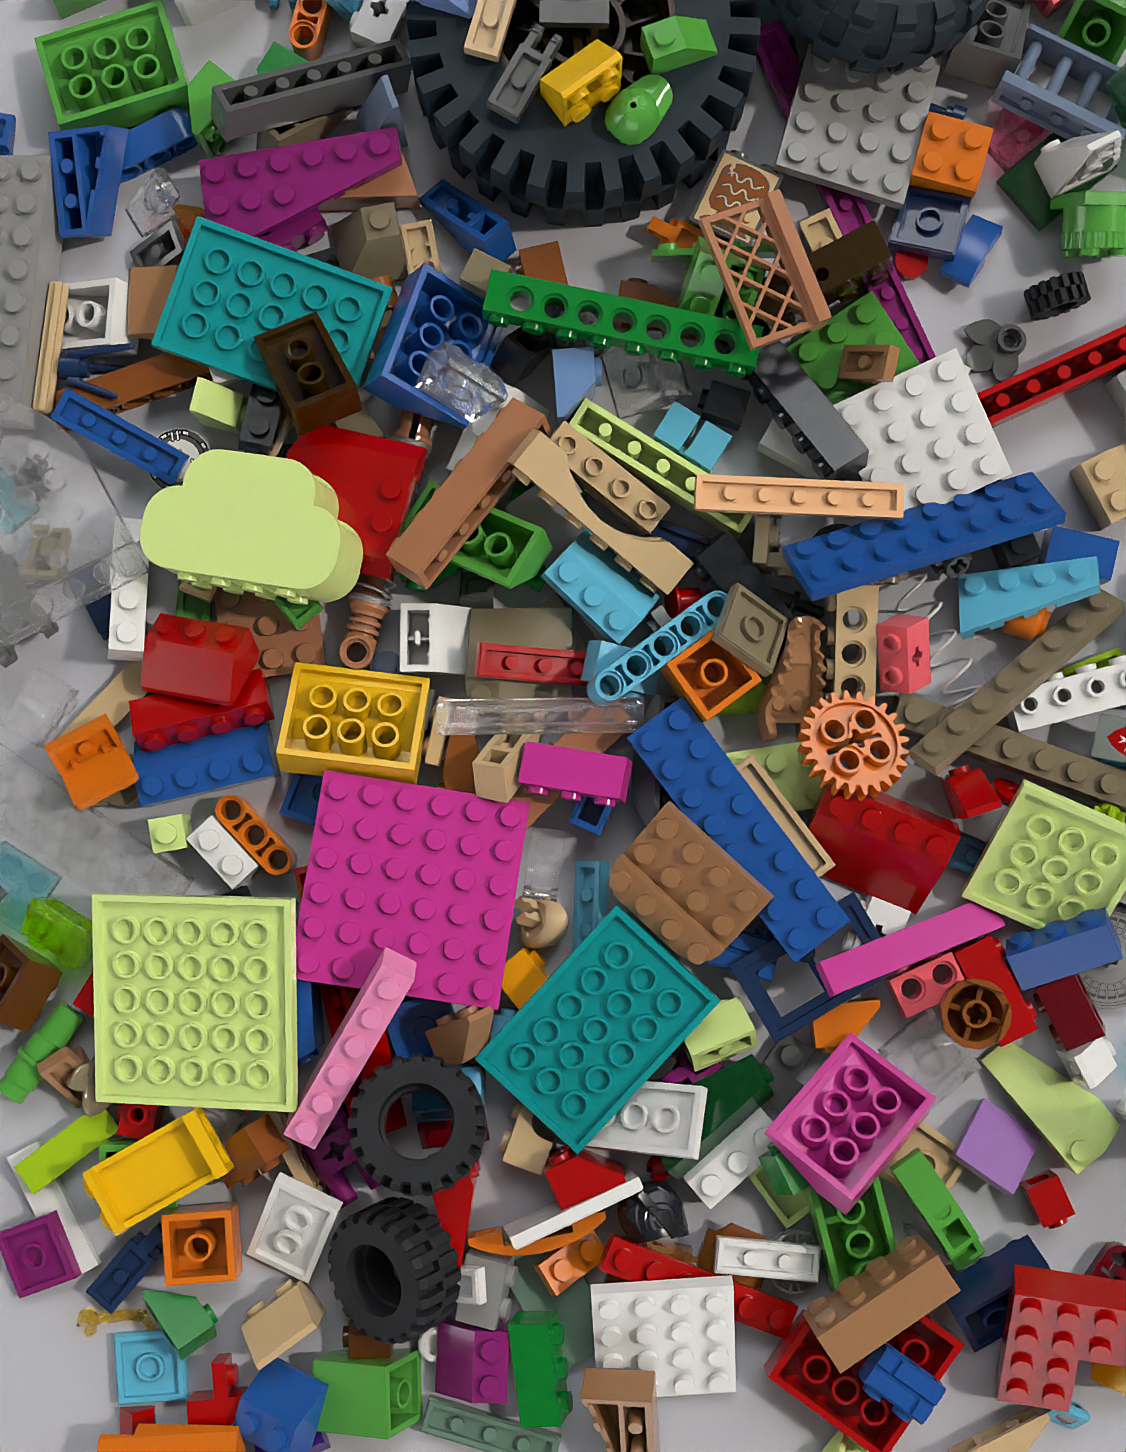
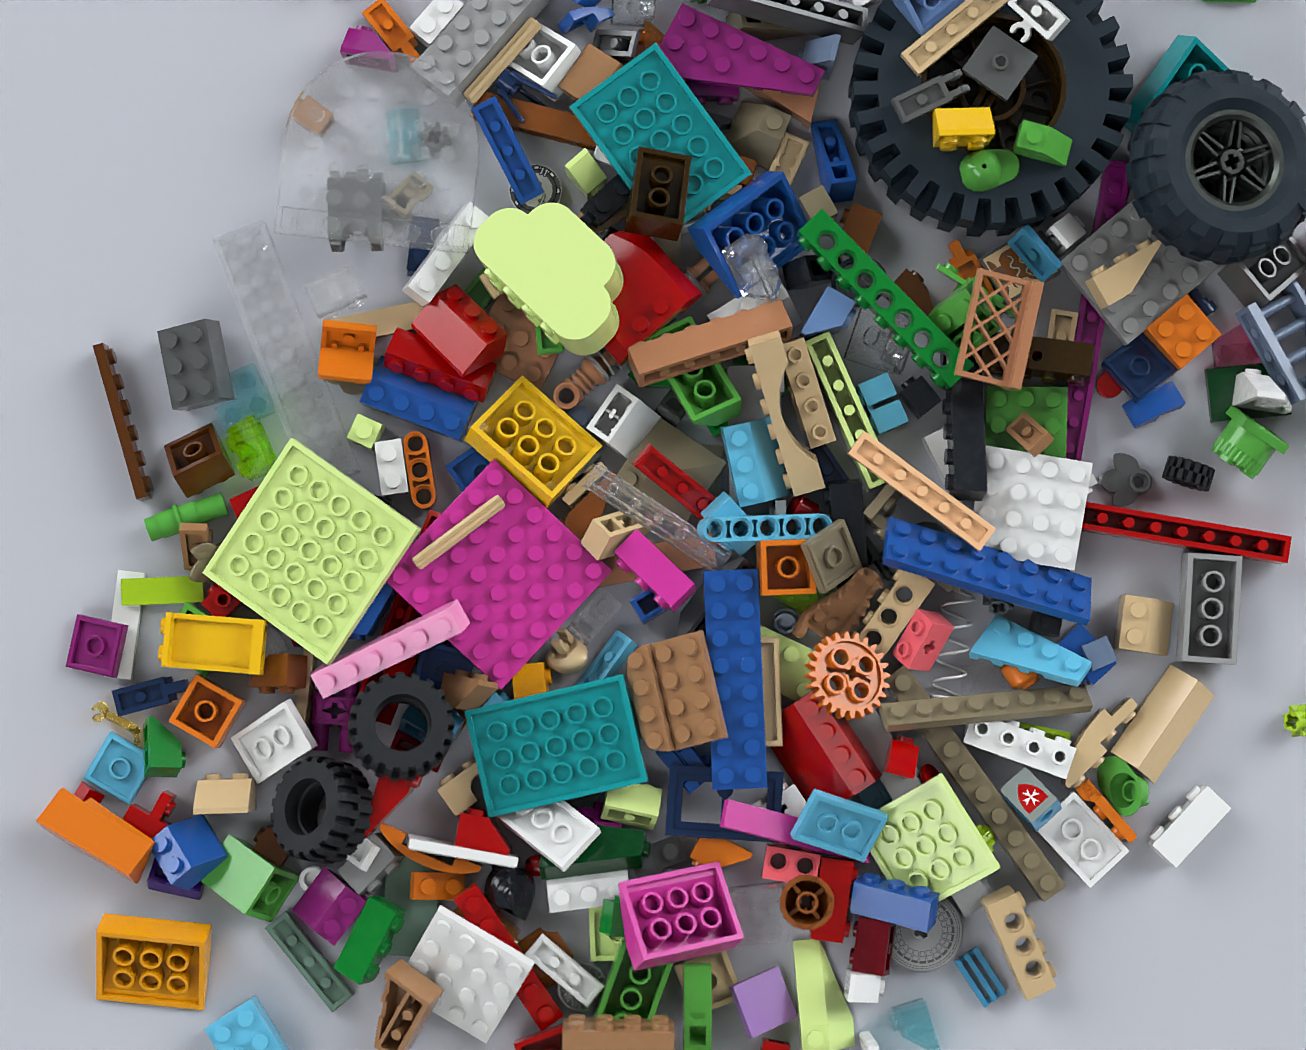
camera: 30 degrees right, 0 degrees up
(107, 246) = (588, 15): none -> blue slope
(338, 874) = (458, 532): none -> tan axle
(743, 172) = (1034, 253): none -> dark azure plate
(744, 731) = (784, 620): none -> sand blue plate
(760, 136) = (1064, 234): none -> white slope
(853, 137) = (1120, 279): none -> tan slope
(952, 908) = (839, 825): none -> medium azure plate
(1095, 541) = (1099, 653): none -> sand blue tile

